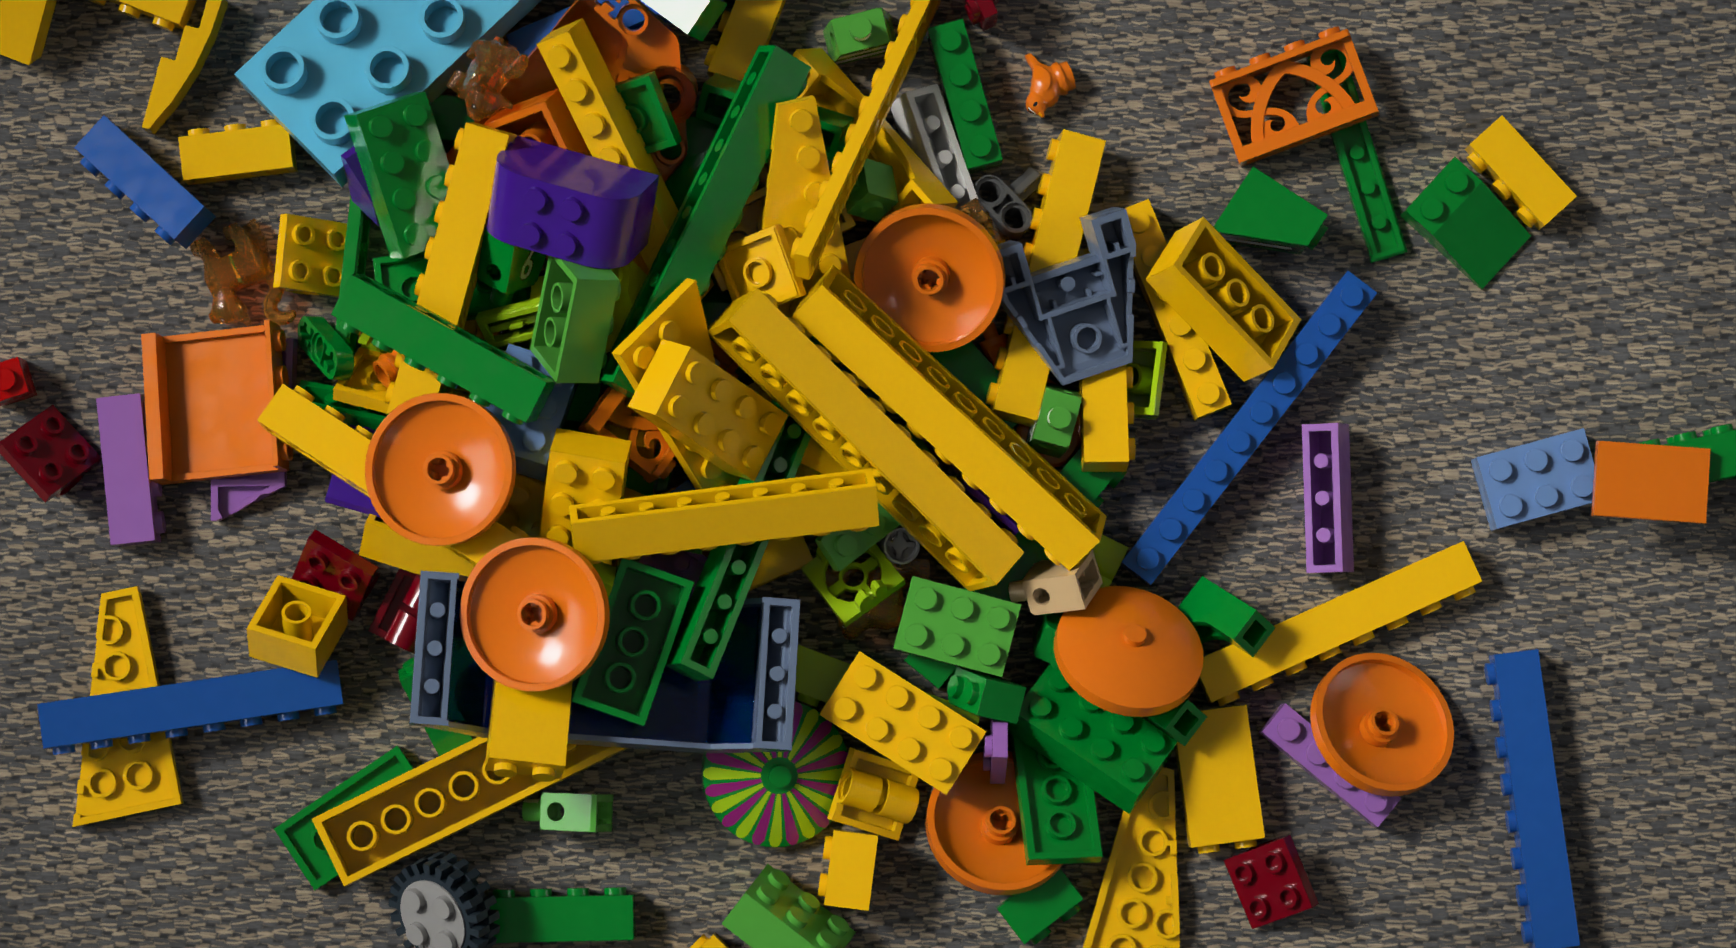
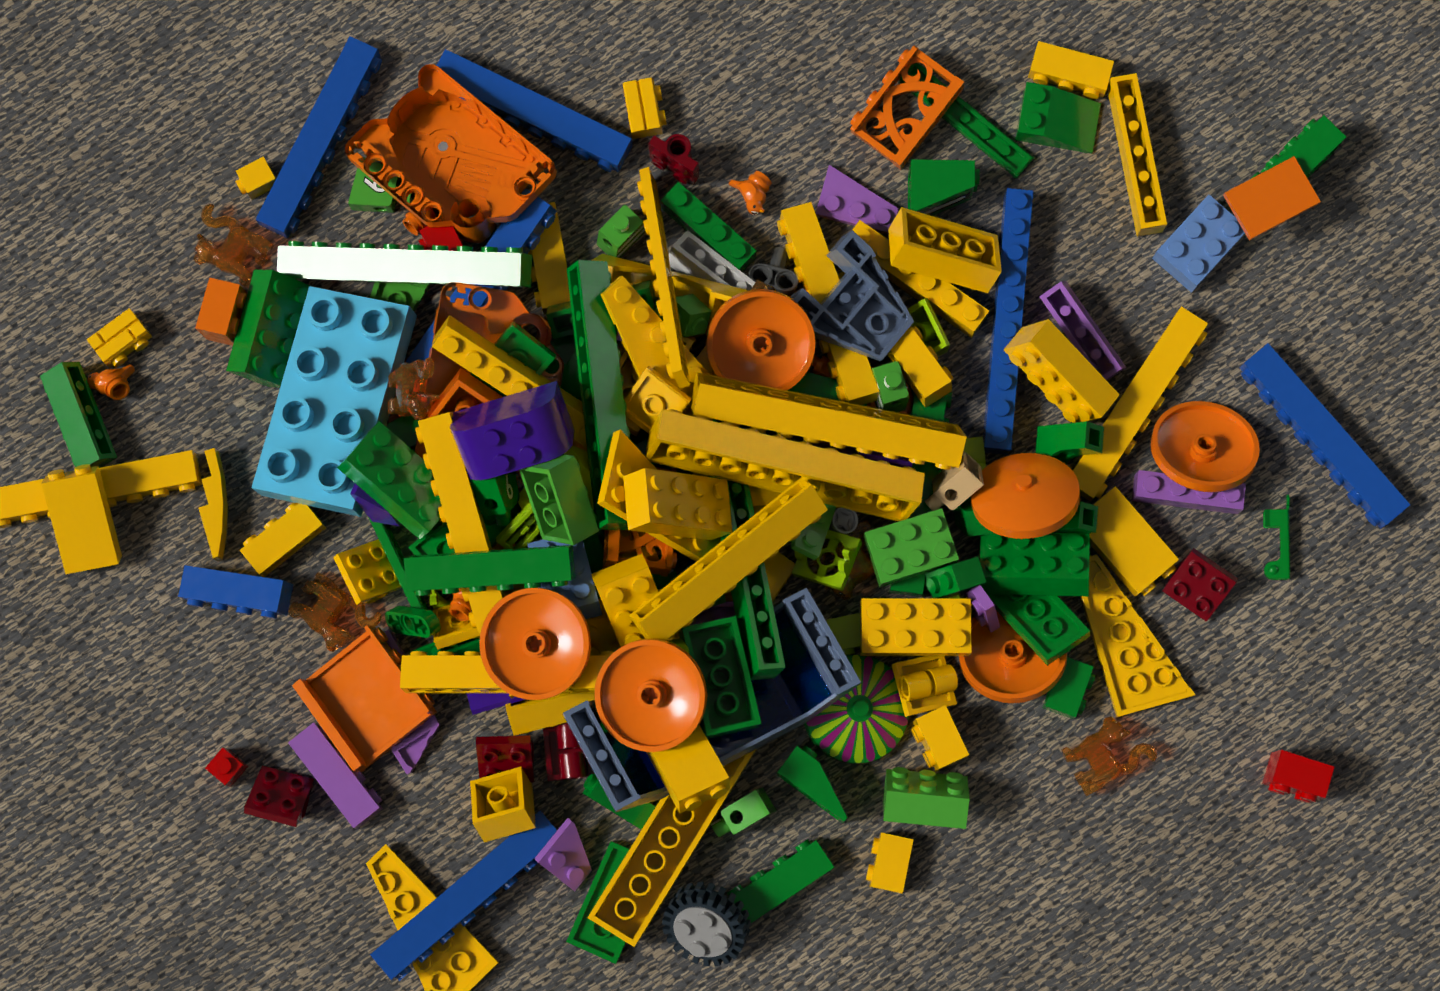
camera: 30 degrees left, 5 degrees down
(333, 731) = (565, 856): none -> medium lavender wing
(669, 820) = (808, 777): none -> green slope
(1156, 172) = (849, 202): none -> medium lavender wing
(1266, 531) = (1061, 372): none -> yellow brick
(1416, 863) = (1279, 519): none -> green piece
(1530, 326) = (1136, 155): none -> yellow brick

